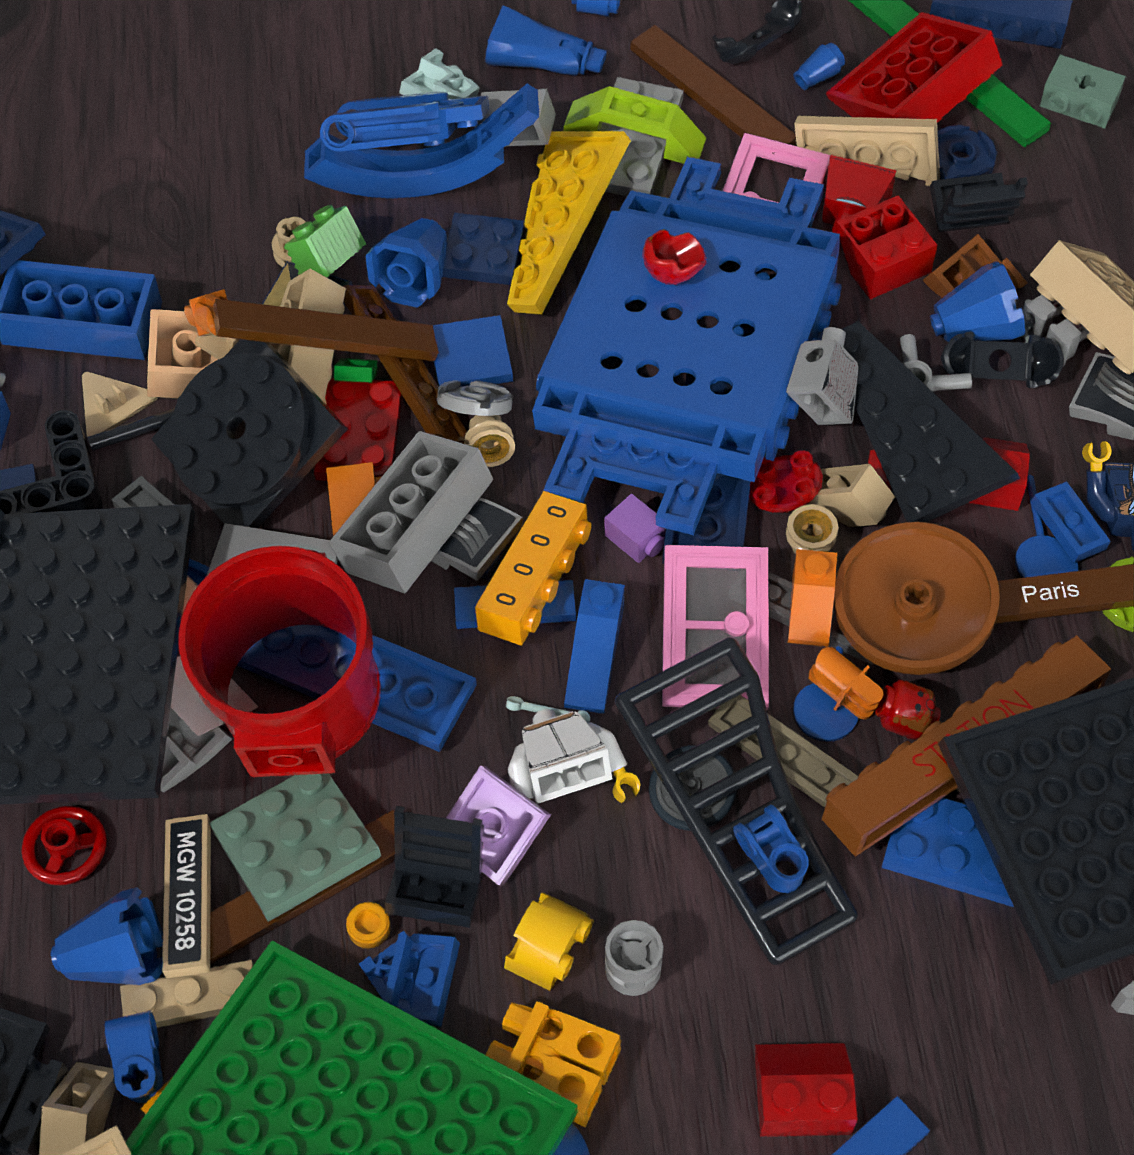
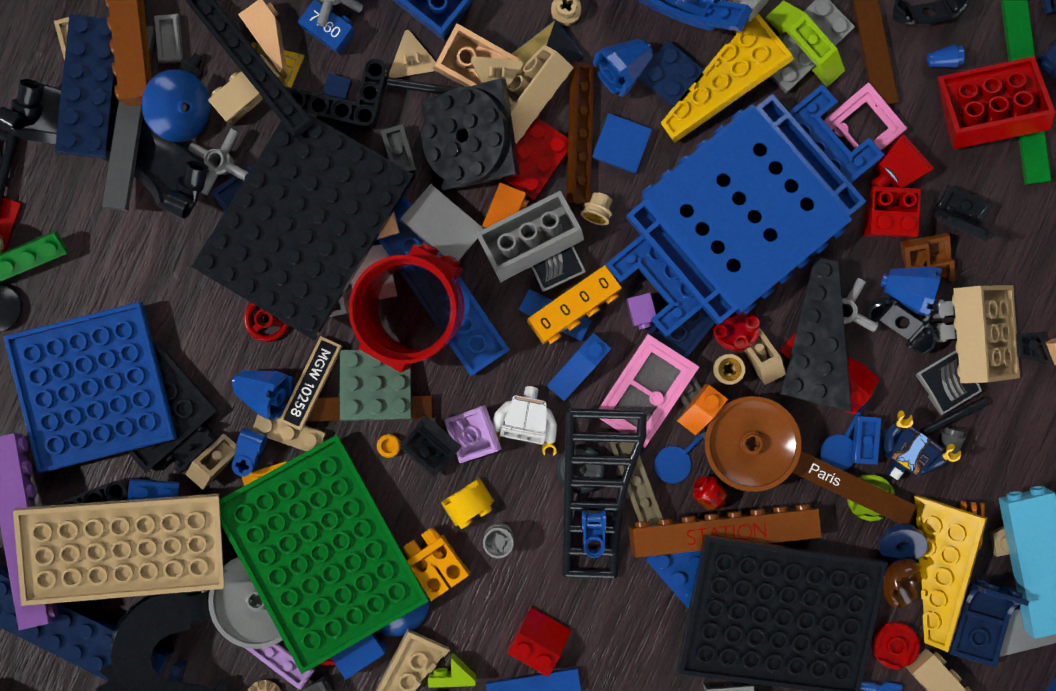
camera: 30 degrees right, 30 degrees up
(200, 312) = (487, 50): orange arm -> none
(324, 330) = (542, 98): reddish brown tile -> none
(325, 242) = (579, 26): bright green brick -> none
(355, 370) = (552, 120): green tile -> none
(415, 974) = (396, 484): blue slope -> none
(477, 399) = (603, 181): light grey tile -> none
(516, 704) = (522, 371): light aqua hinge -> none
(672, 257) = (761, 168): red hair -> none
(825, 379) = (794, 289): light grey torso -> none
(845, 683) = (688, 461): orange arm -> none
(886, 142) = (934, 136): tan wing -> none
(978, 146) = (970, 173): dark blue tile -> none

